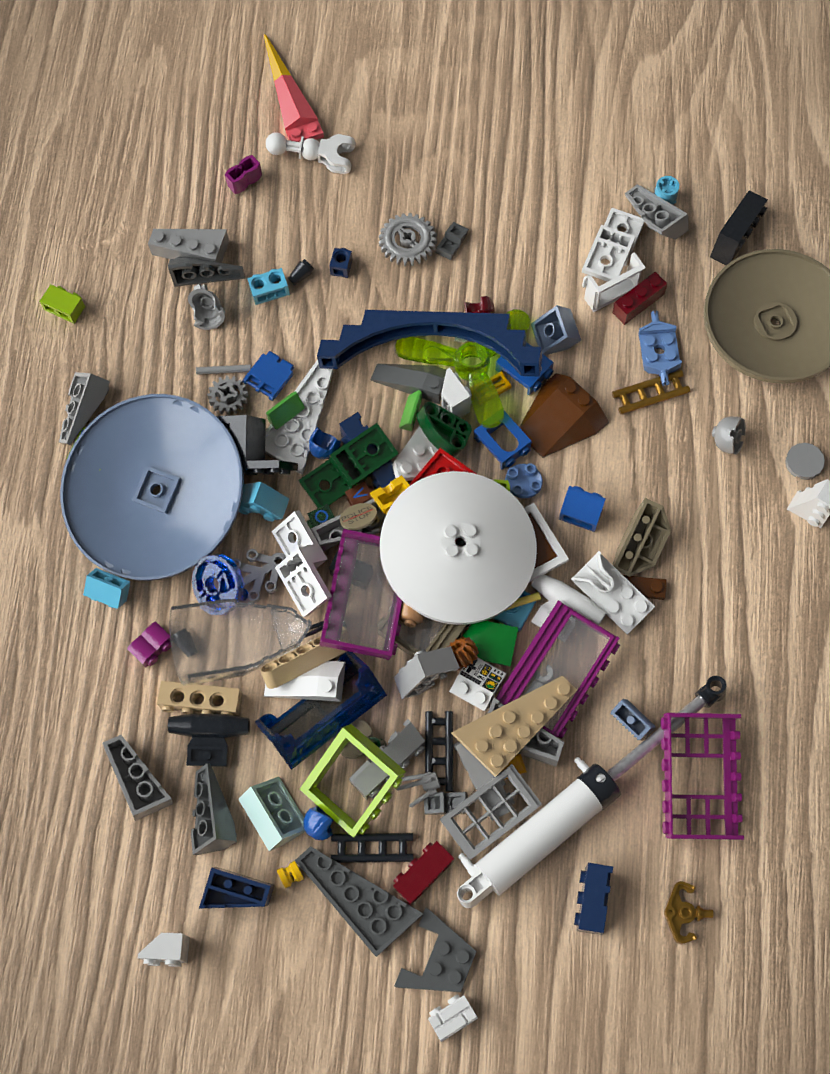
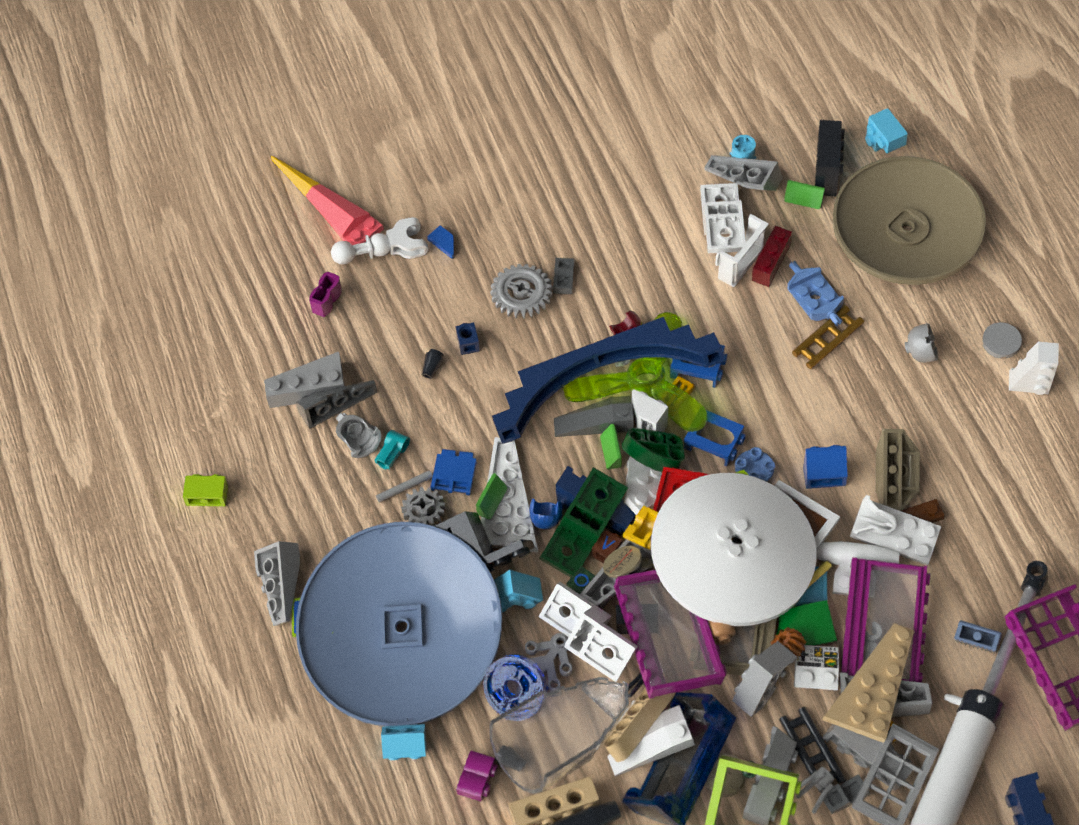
camera: 25 degrees left, 10 degrees down
(232, 330) = (393, 445): none -> teal piece
(269, 289) = (410, 392): medium azure brick -> none
(367, 167) = (442, 240): none -> blue tile
(556, 330) = (709, 315): sand blue slope -> none
(561, 416) = (757, 391): reddish brown wedge -> none
(699, 254) = (804, 194): none -> bright green slope
(800, 225) = (885, 132): none -> medium azure brick

